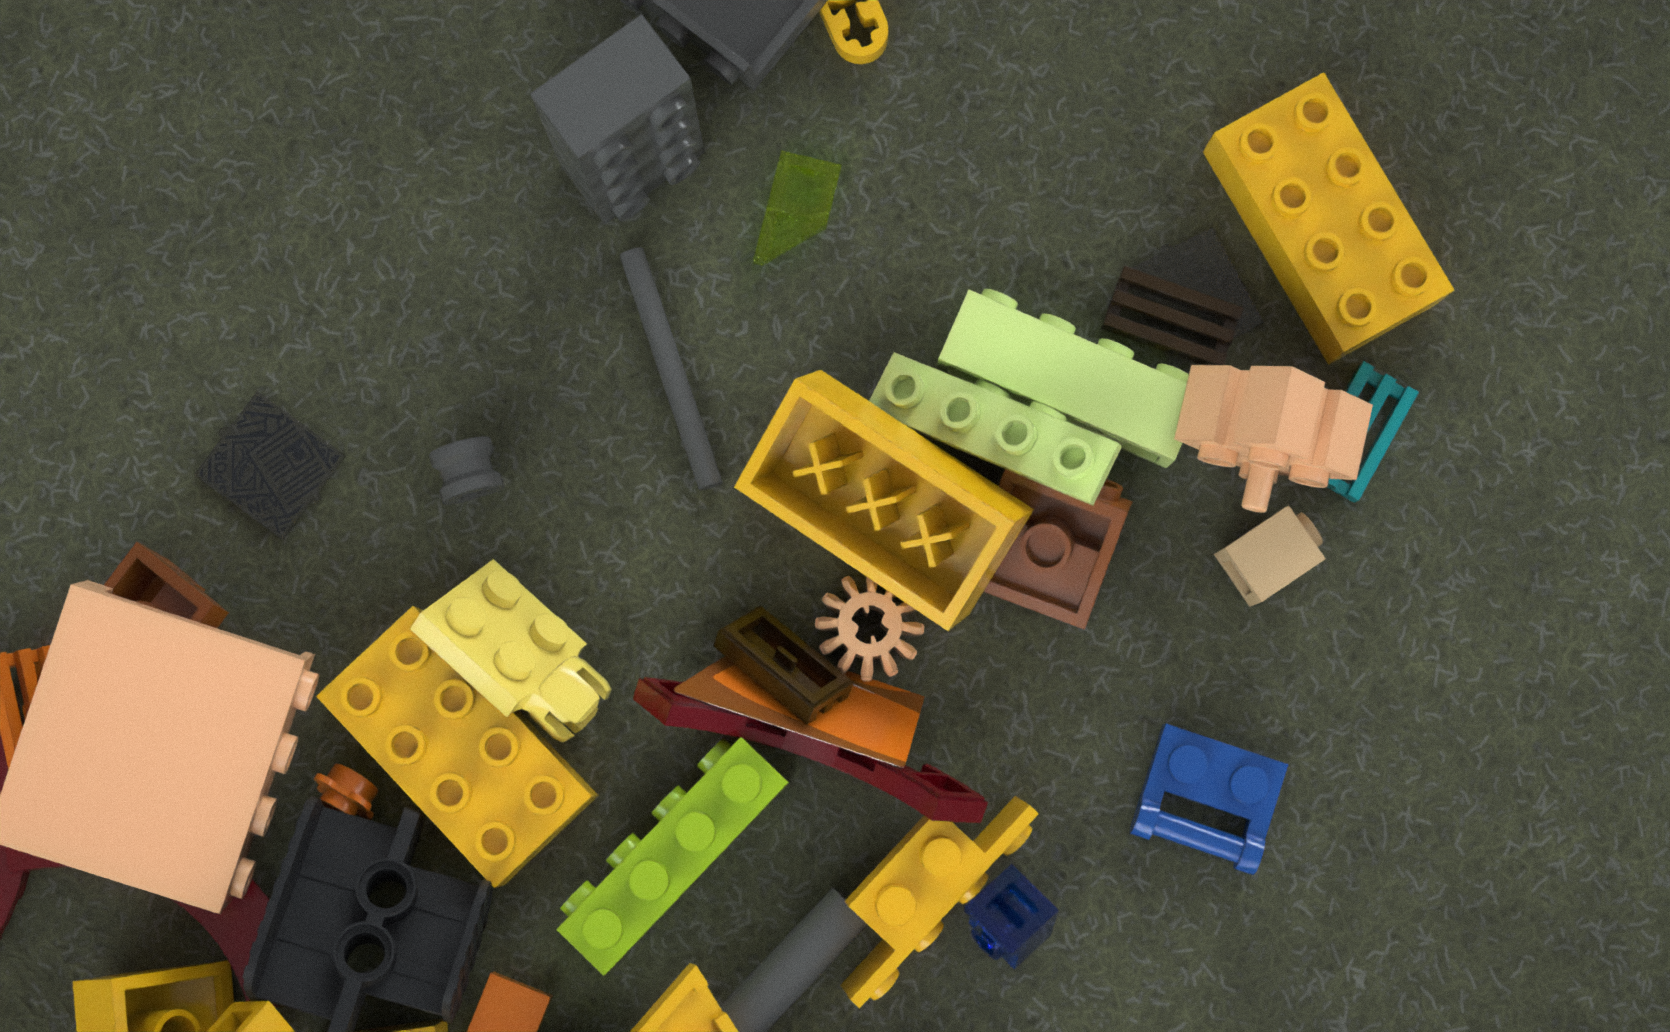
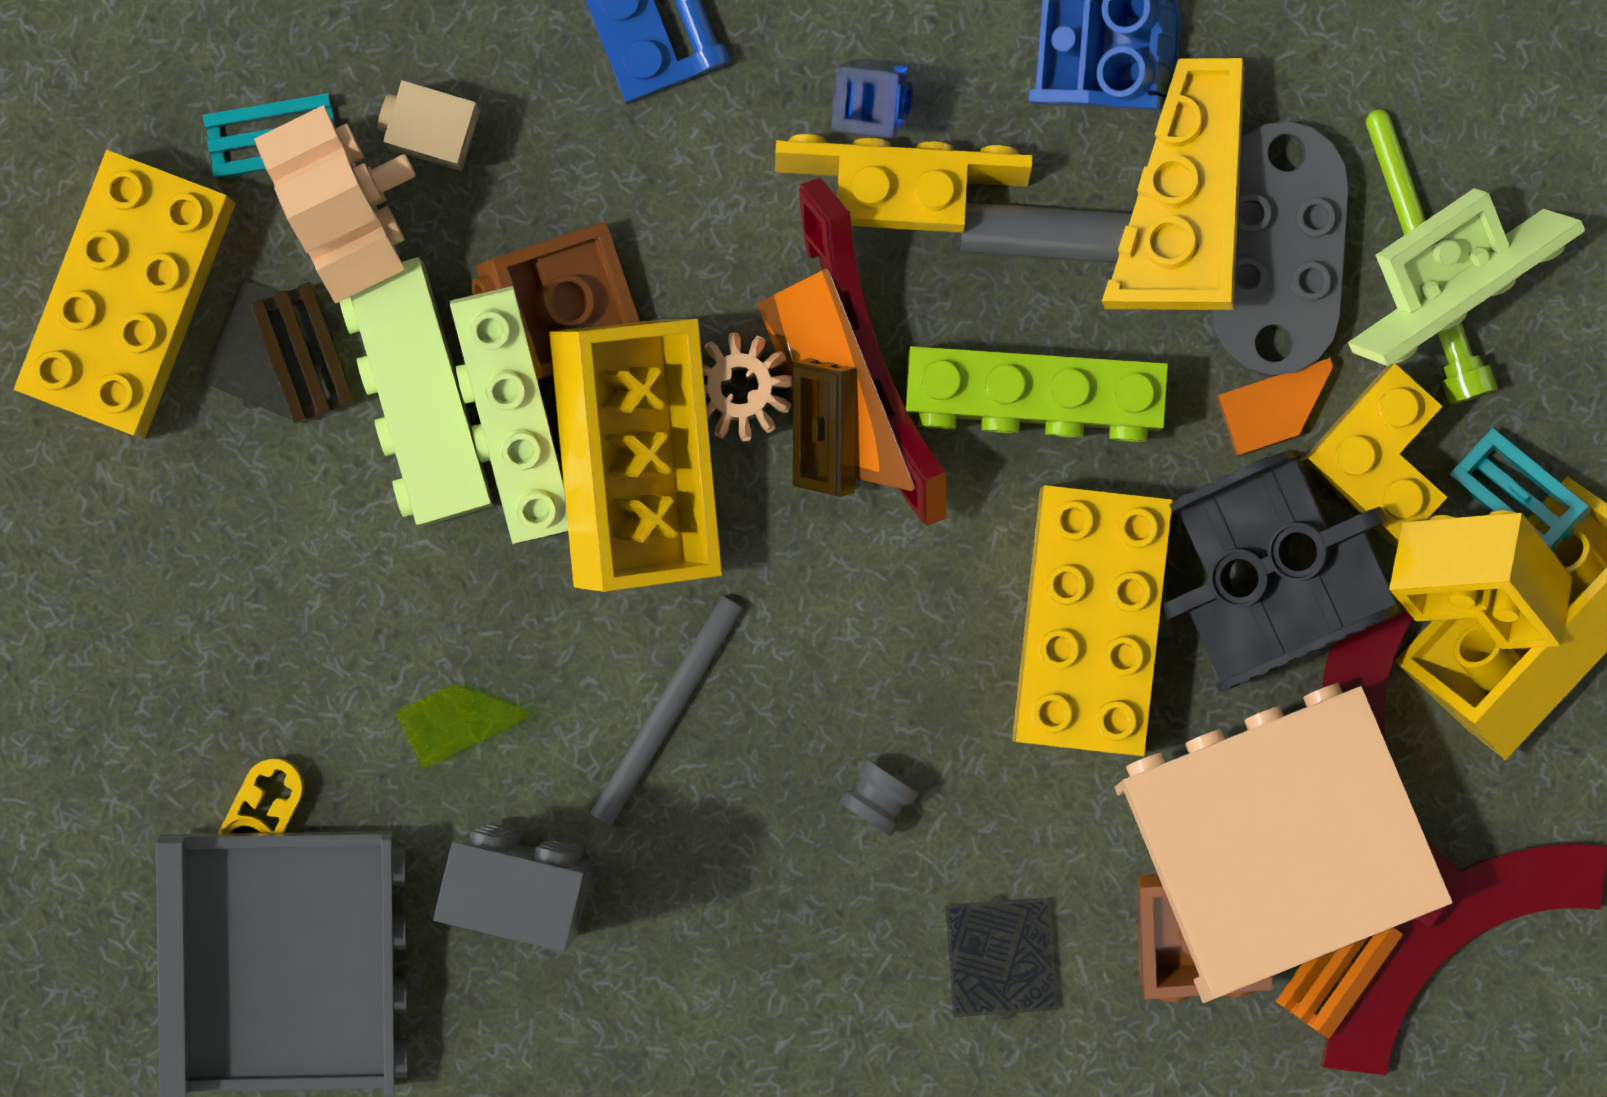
camera: 130 degrees left, 5 degrees up
(346, 791) = (1196, 678): orange plate -> none
(514, 651) = (984, 637): light yellow plate -> none

